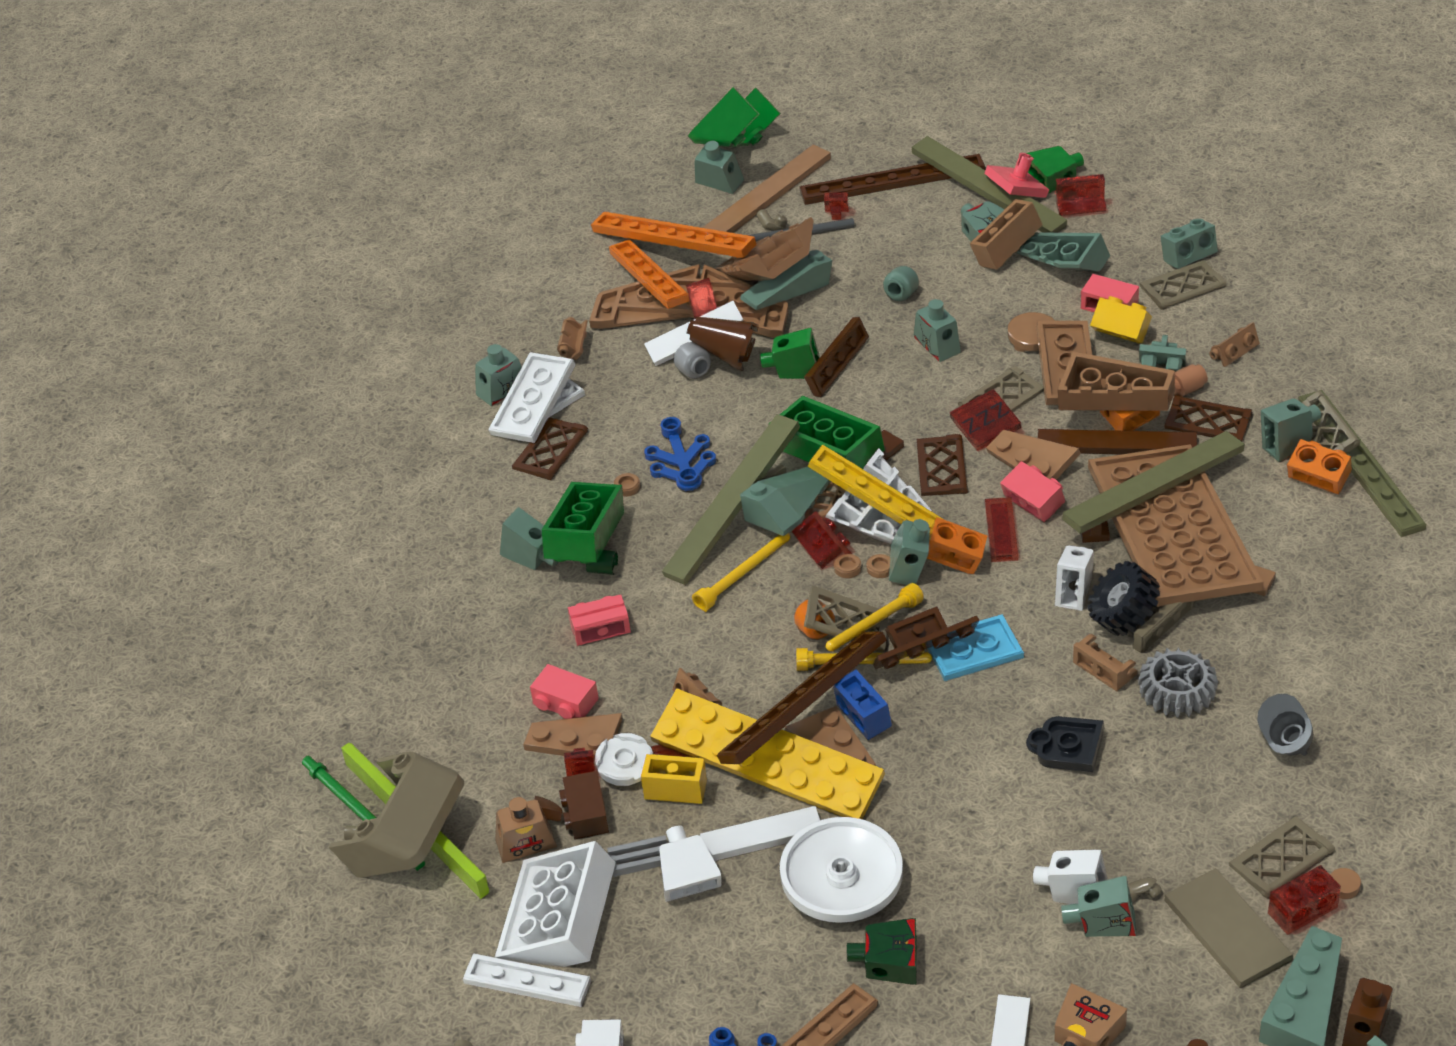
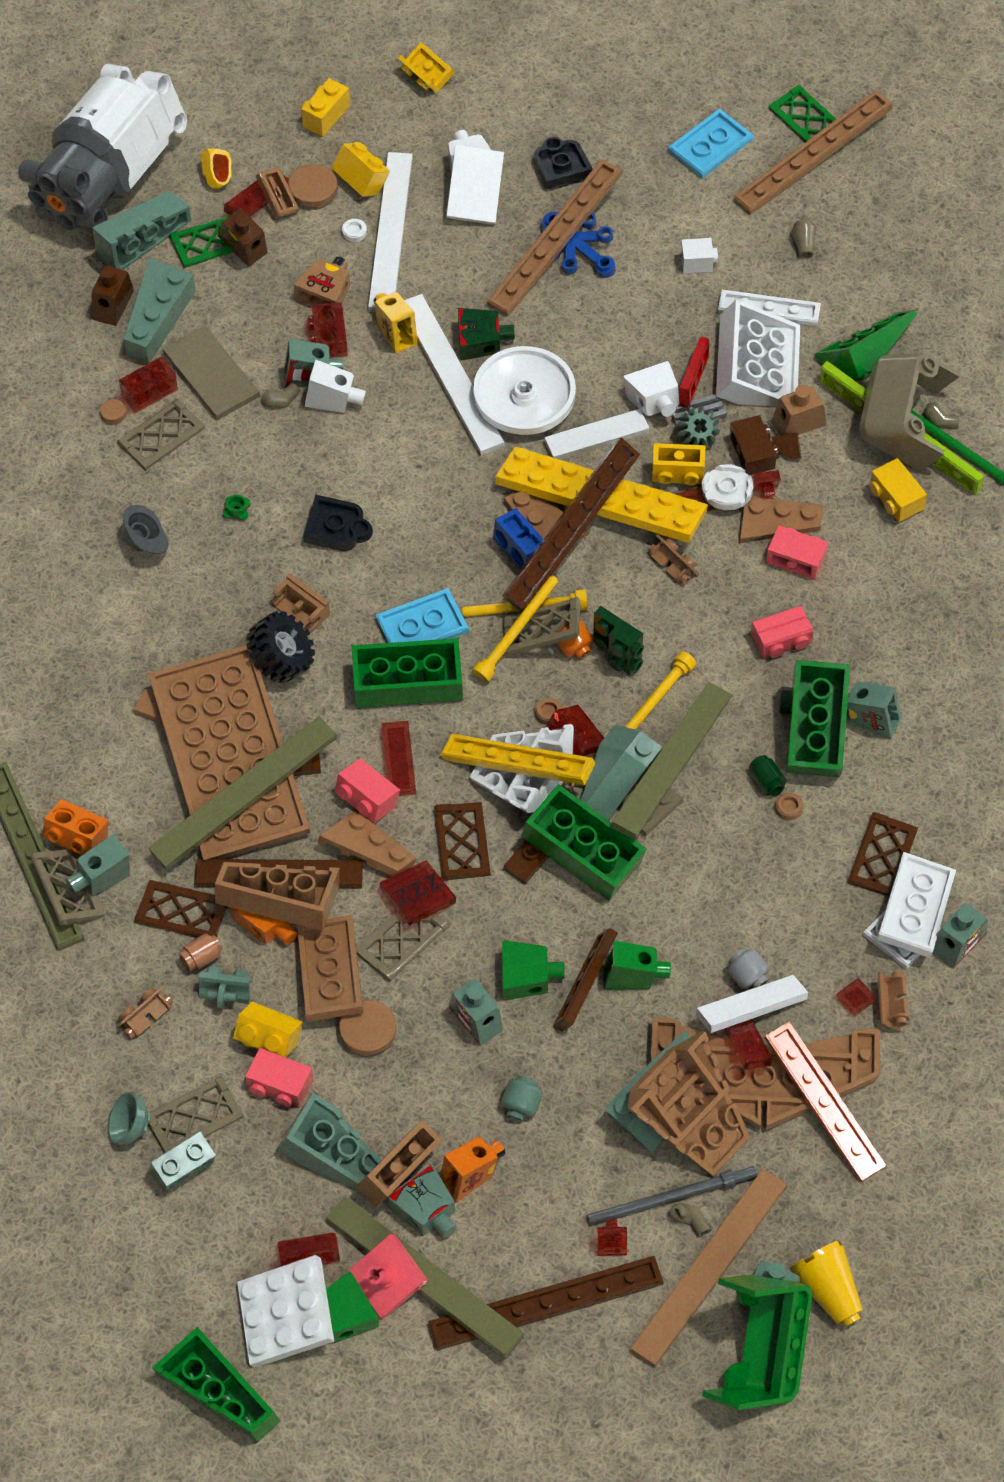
camera: 170 degrees right, 15 degrees up
(429, 913) = (859, 353): none -> green wedge
(438, 741) = (897, 490): none -> yellow brick
(602, 350) = (856, 997): none -> clear red tile
(635, 885) = (694, 372): none -> red tile
(642, 501) = (767, 775): none -> dark green brick
(644, 820) = (691, 420): none -> sand green gear
(674, 179) = (831, 1282): none -> yellow cone
(674, 234) = (806, 1154): orange plate -> none
(688, 477) = (739, 840): blue plant -> none
(724, 338) = (712, 976): reddish brown cone -> none
(767, 600) = (620, 639): none -> dark green plate
(878, 566) = (516, 712): medium nougat tile -> none
(888, 363) = (527, 970): none -> green torso
(910, 539) = (486, 698): sand green torso -> none
(920, 632) = (467, 609): reddish brown bracket -> none
(936, 926) = (453, 377): none -> white tile
(947, 235) = (470, 1166): none -> orange torso
(956, 546) = (443, 716): orange brick -> none
(991, 584) = (407, 672): none -> green brick
(995, 960) = (391, 311): none -> yellow torso
(1077, 566) = (326, 685): white torso -> none
(1081, 963) = (329, 328): none -> clear red brick
(1097, 156) = (285, 1311): none -> white plate
(1148, 125) = (213, 1382): none -> green wedge
(1176, 688) = (232, 590): light grey gear -> none
(1183, 760) = (236, 501): none -> green plate
(1238, 268) = (128, 1119): none -> sand green piece

